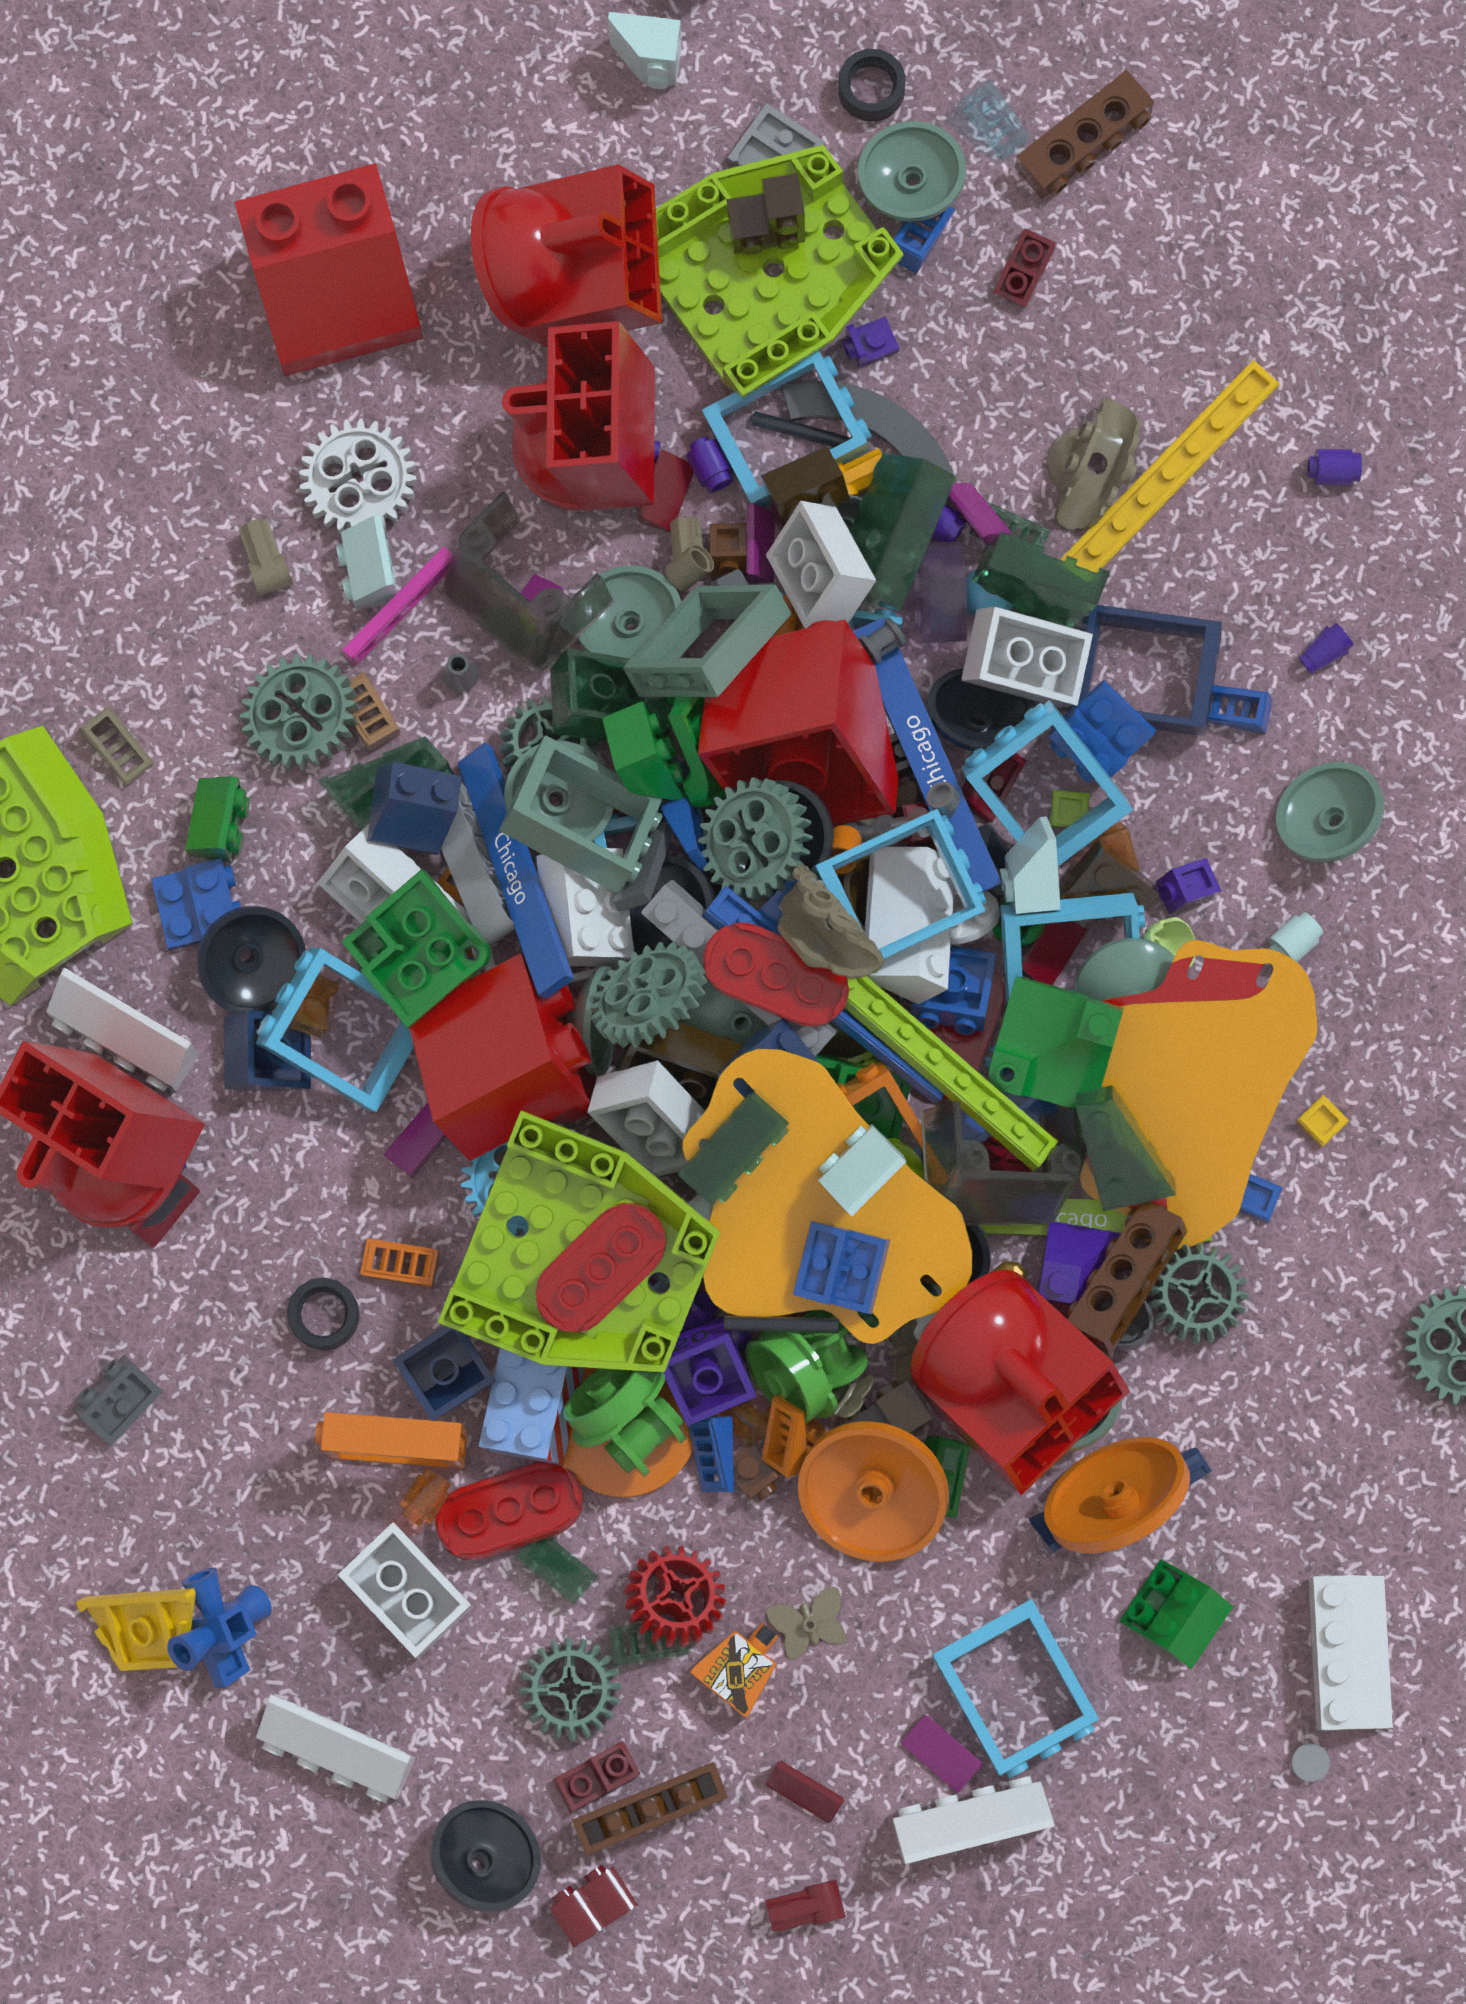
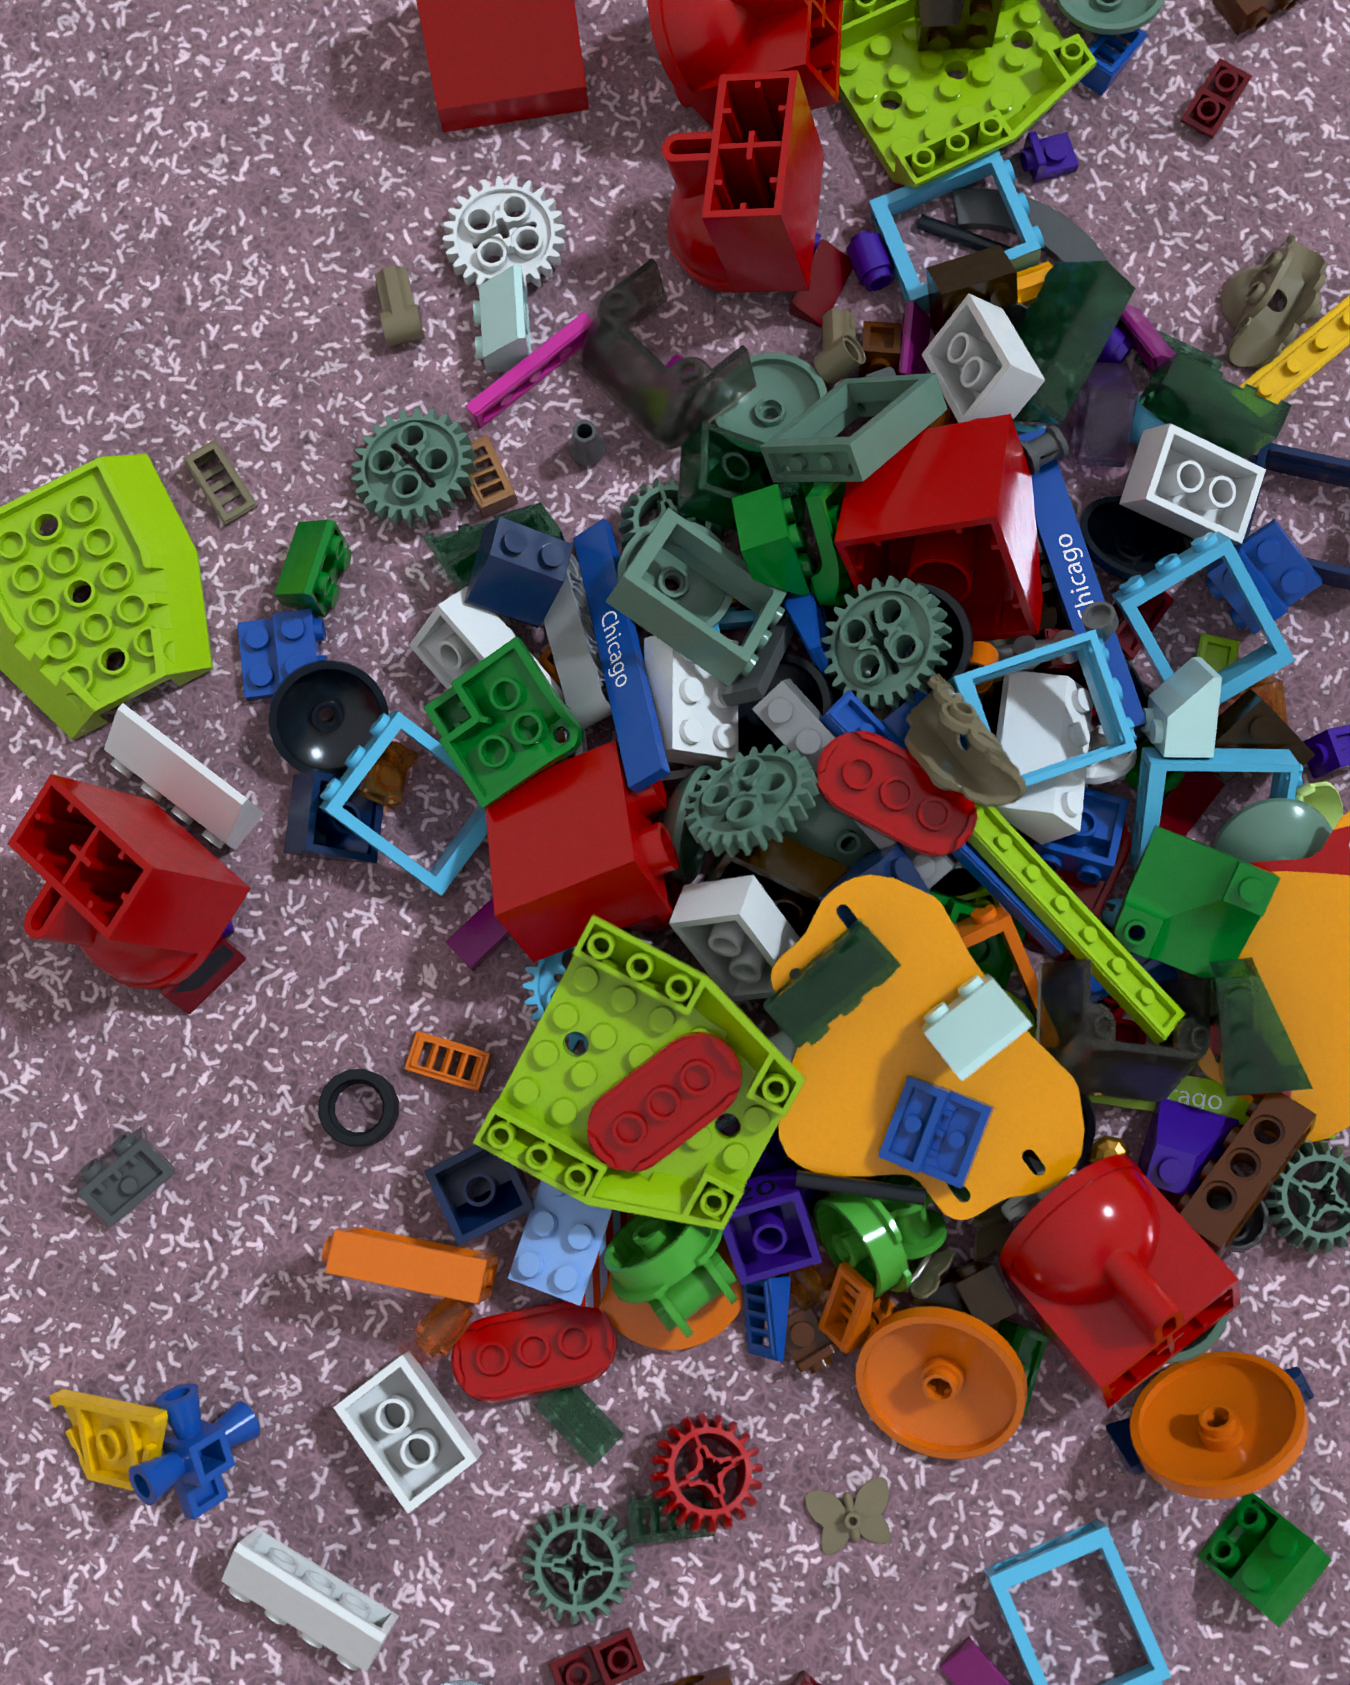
camera: 10 degrees right, 0 degrees up
(738, 1668) = (767, 1563): torso -> none

